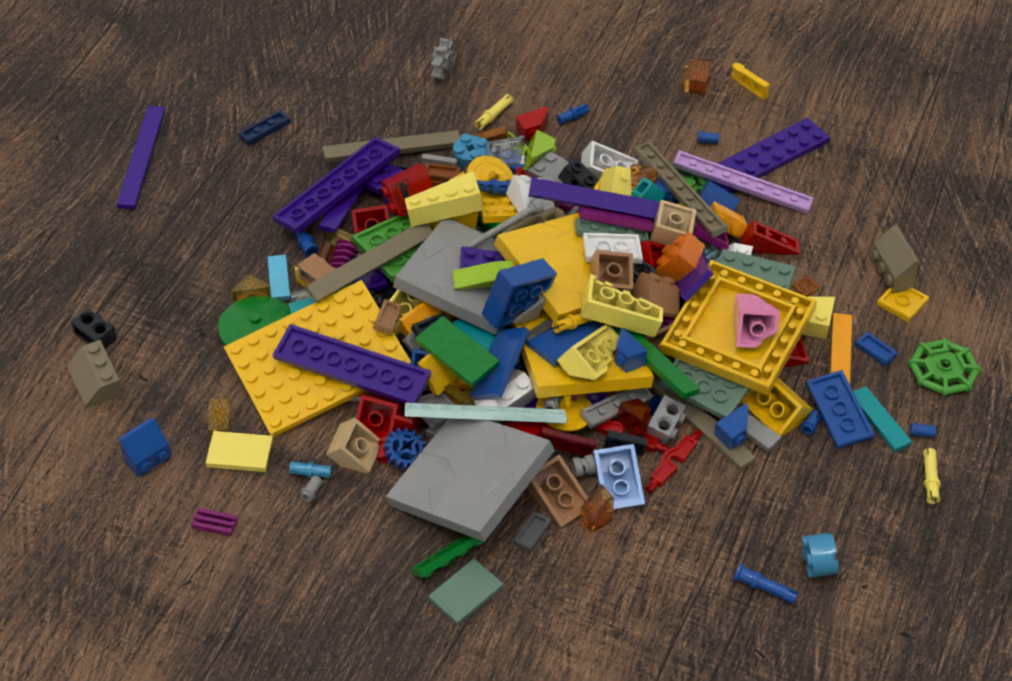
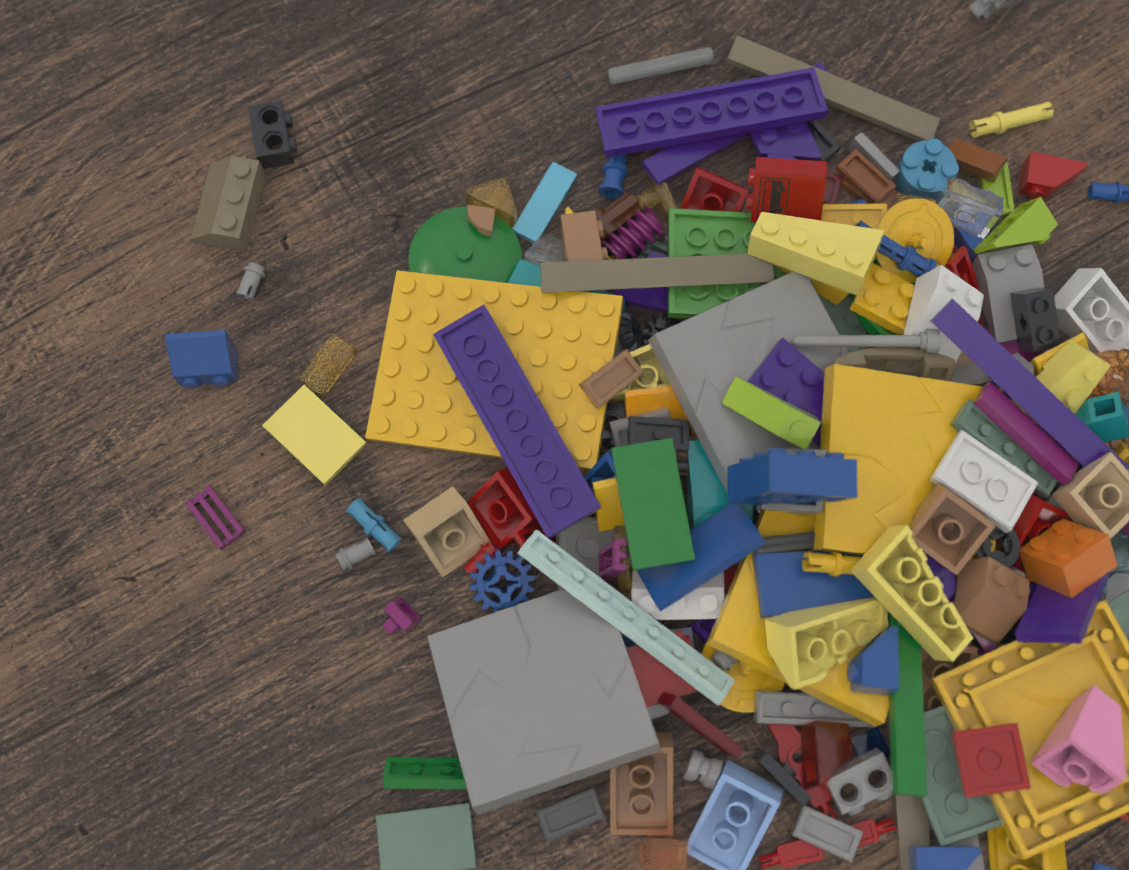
camera: 35 degrees right, 25 degrees up
(138, 399) = (250, 280): none -> light grey pin
(251, 297) = (481, 218): none -> medium nougat tile
(290, 185) = (660, 65): none -> light grey axle
(362, 498) = (401, 616): none -> magenta tile
(457, 392) = (611, 567): none -> magenta tile
(669, 452) = (827, 833): none -> light grey tile
(716, 356) = (990, 760): none -> red tile

